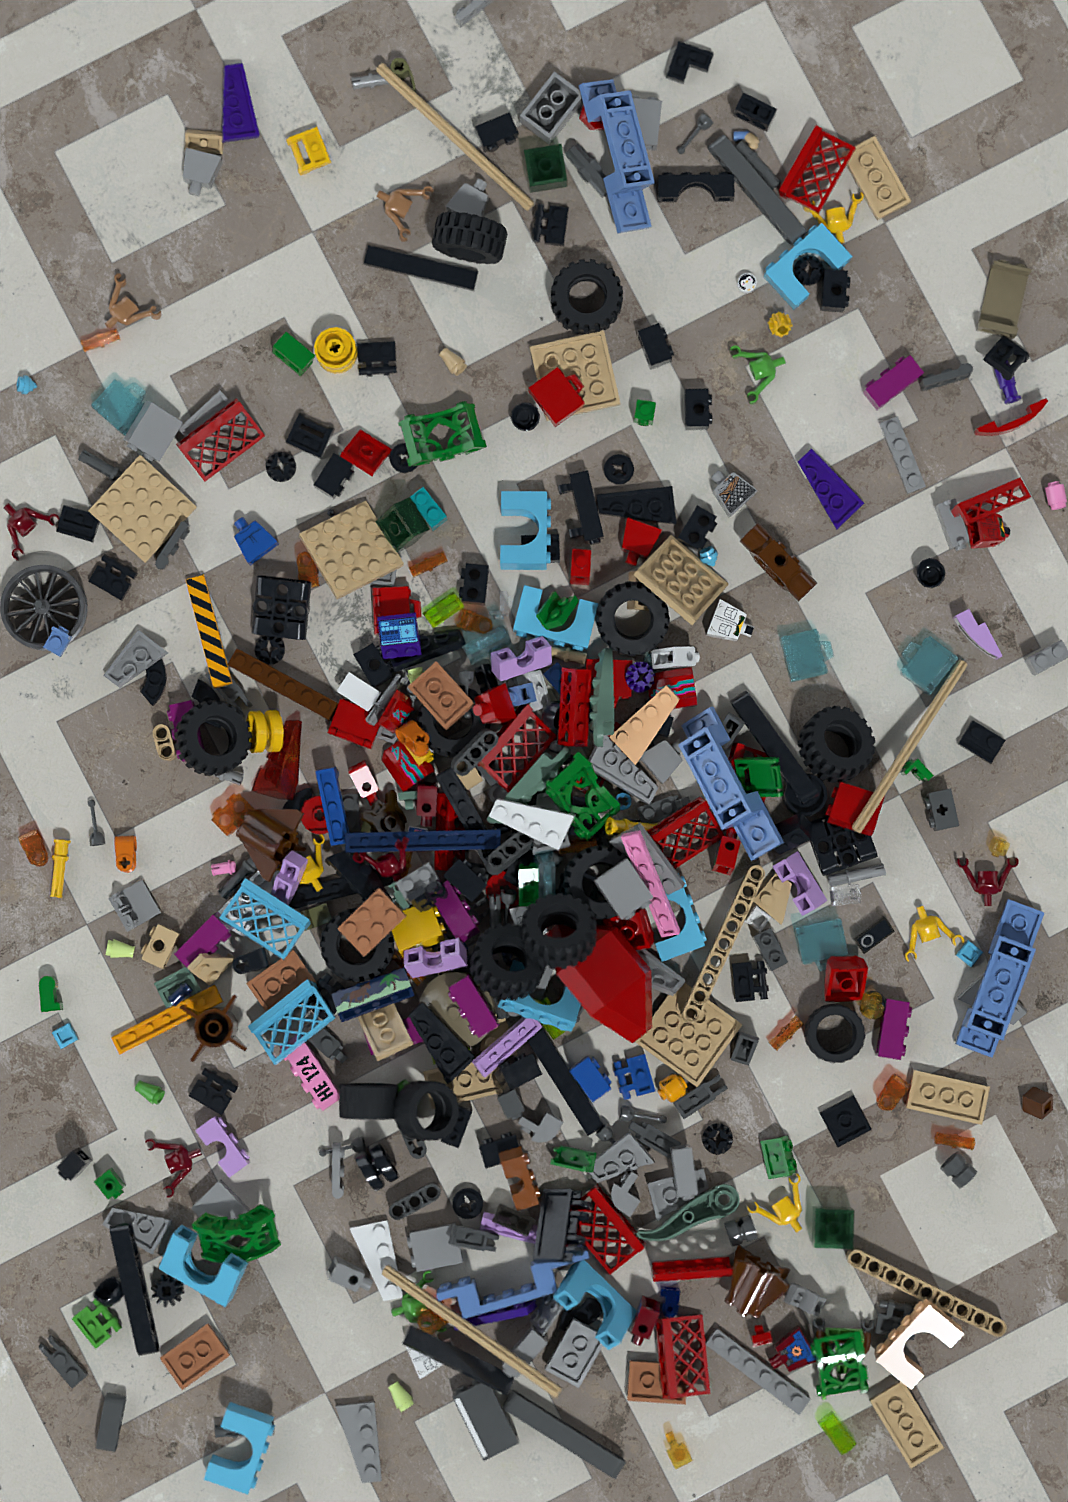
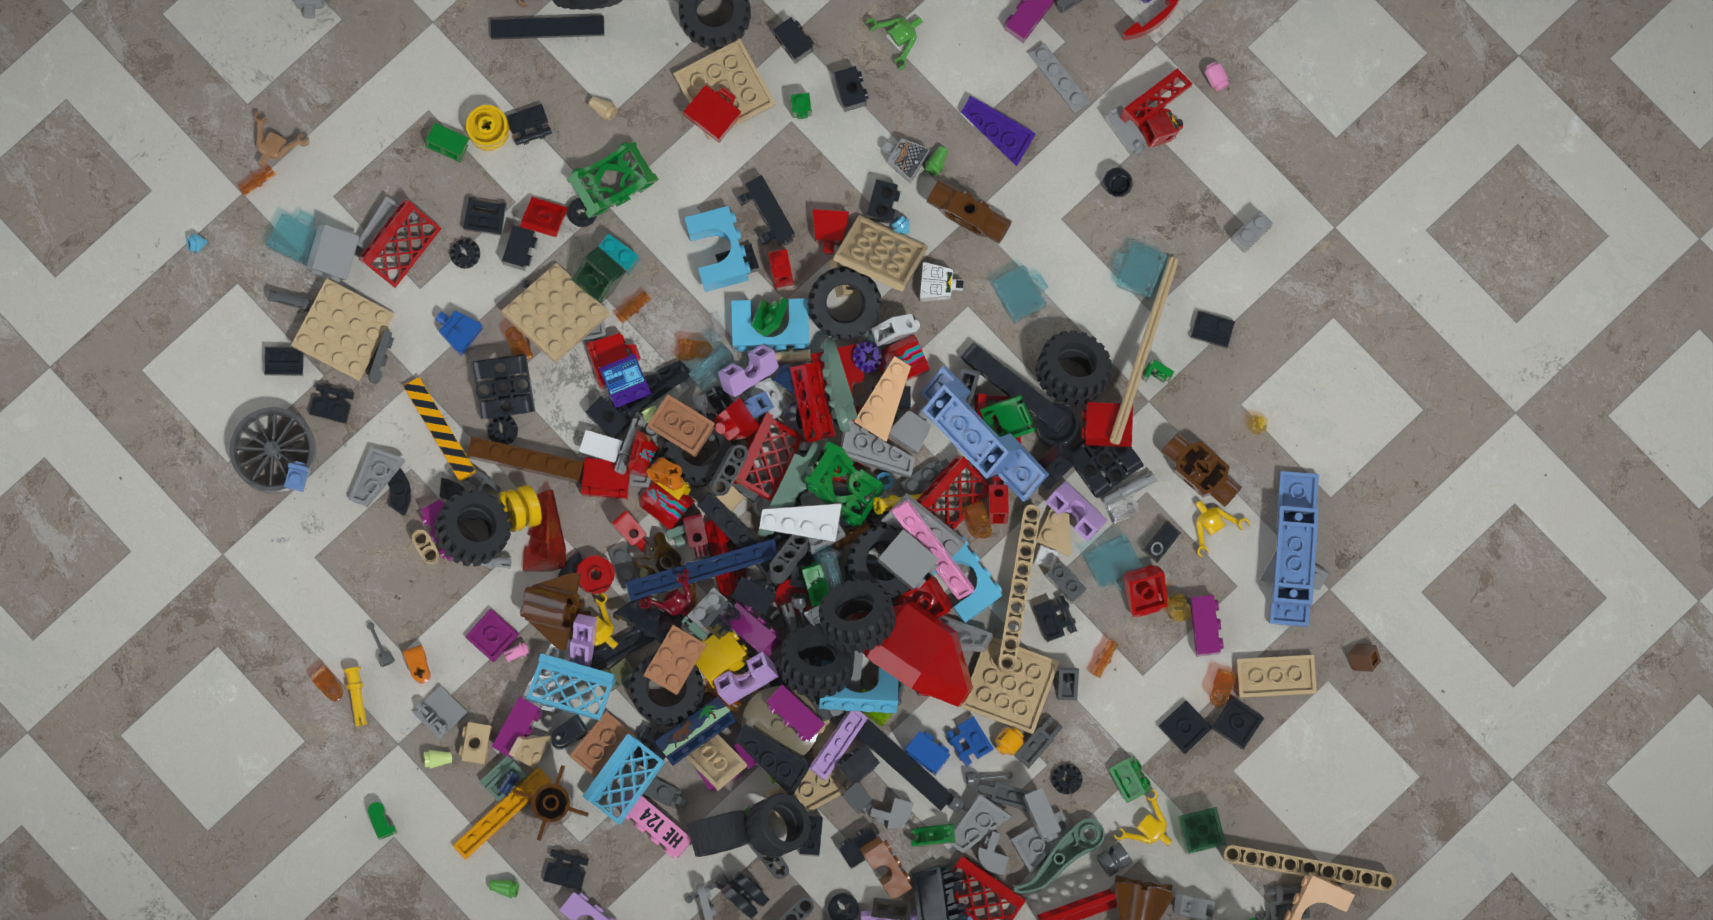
camera: 15 degrees left, 5 degrees down
(23, 524) = (231, 376): dark red piece -> none
(65, 1035) = (406, 857): medium azure tile -> none
(204, 845) = (492, 635): none -> magenta tile
(235, 881) = (540, 645): dark grey pin -> none
(236, 817) = (506, 595): clear orange brick -> none
(332, 804) = (605, 561): blue piece -> none
(443, 610) = (660, 346): clear neon green brick -> none
(478, 584) = (687, 312): black brick -> none
(525, 416) = (687, 140): black hair -> none
(618, 460) = (788, 158): black gear -> none
(642, 504) = (824, 193): black wing -> none
(701, 862) = (977, 517): none -> clear orange piece
(760, 503) = (935, 163): none -> bright green cone
(857, 1028) = (1161, 624): black tyre -> none
(897, 1132) = (1237, 723): none -> black tile
(932, 876) = (1201, 469): none -> reddish brown brick
(945, 800) = (1192, 393): dark grey brick -> none
(945, 1139) = (1295, 716): clear orange pin -> none
(960, 1172) = (1306, 742): dark grey wheel -> none
(969, 953) = (1258, 534): medium azure tile -> none
(977, 634) = (1179, 228): lavender slope -> none
(987, 880) = (1255, 459): dark red piece -> none

